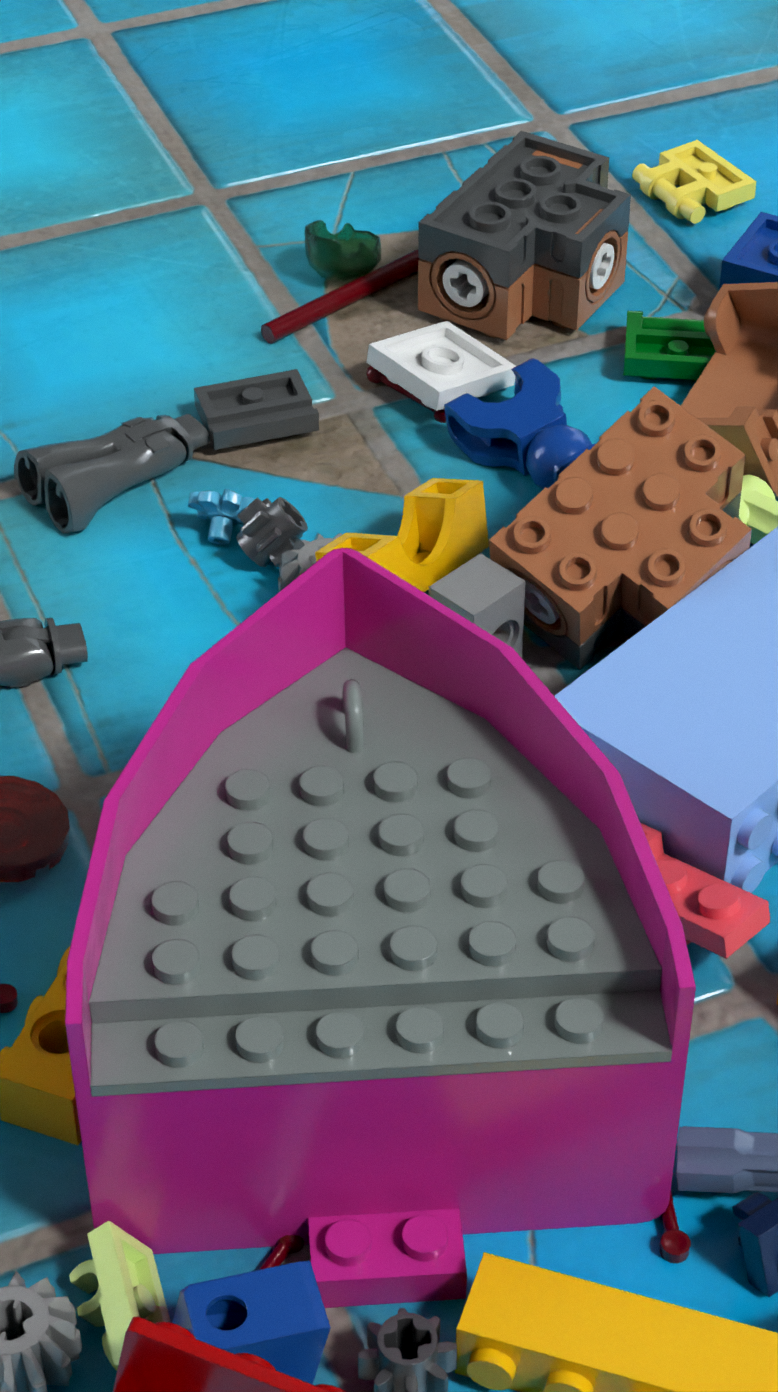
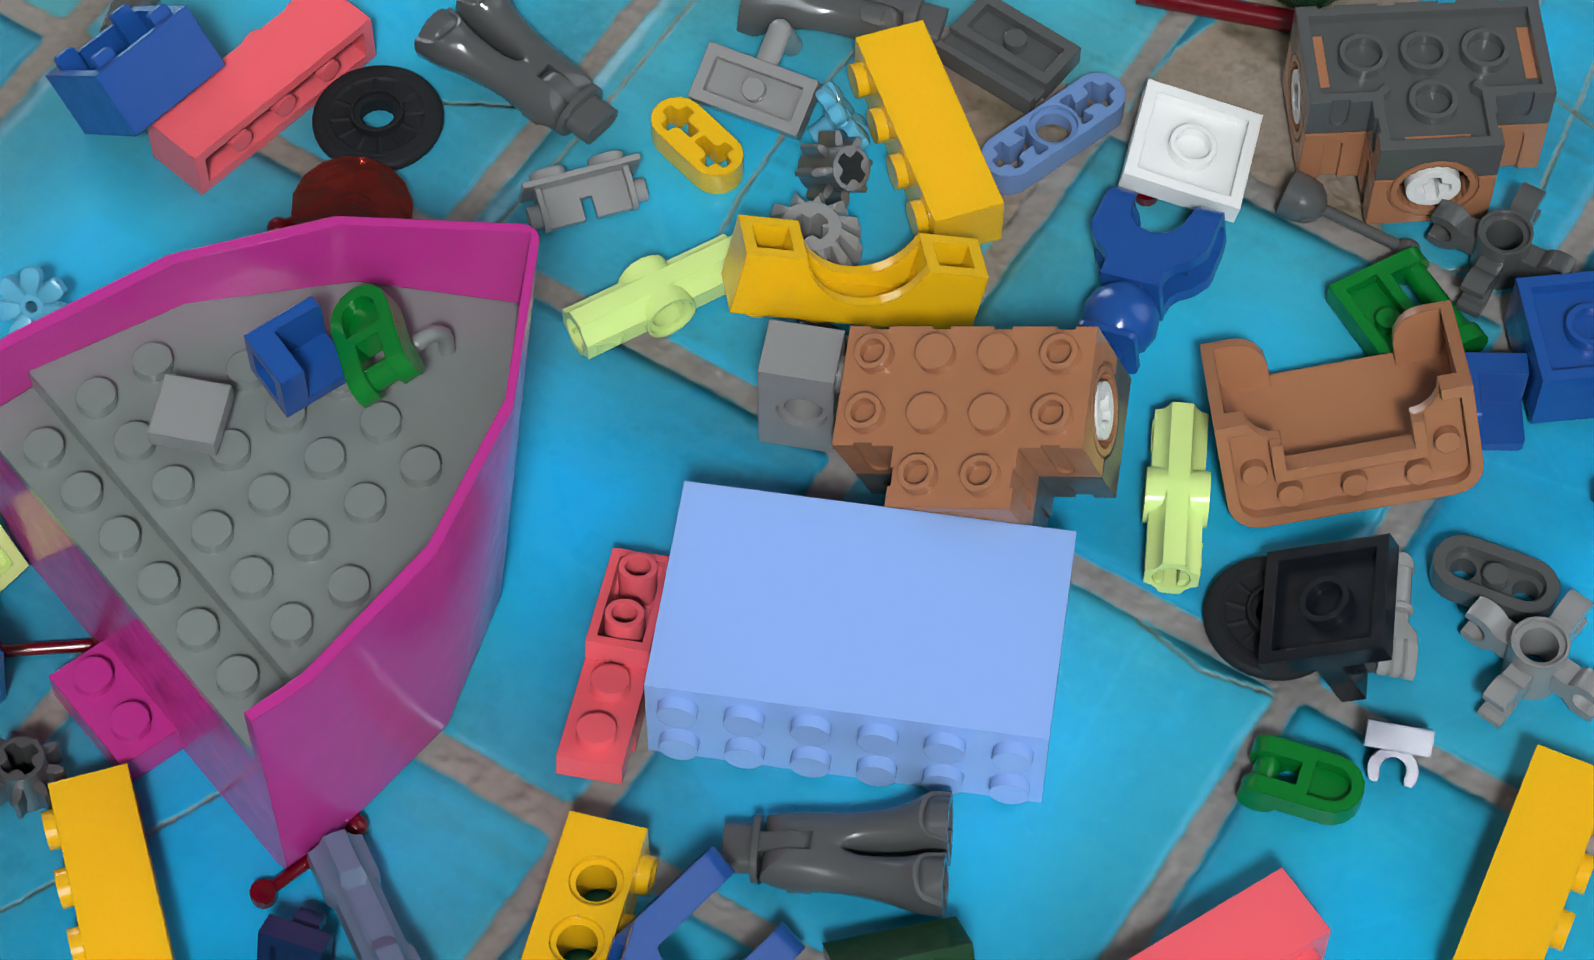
camera: 55 degrees right, 15 degrees up
(125, 696) = (560, 193): none -> light grey hinge
(144, 539) = (757, 86): none -> light grey plate
(158, 601) = (690, 151): none -> yellow beam
(282, 886) = (190, 414): none -> light grey tile
(300, 789) = (295, 357): none -> blue panel
(313, 709) = (361, 327): none -> green plate
(322, 478) = (925, 135): none -> yellow brick
(342, 439) = (1061, 110): none -> medium blue beam
(535, 339) = (1307, 201): none -> dark grey hinge
(664, 279) = (1497, 245): none -> dark grey pin

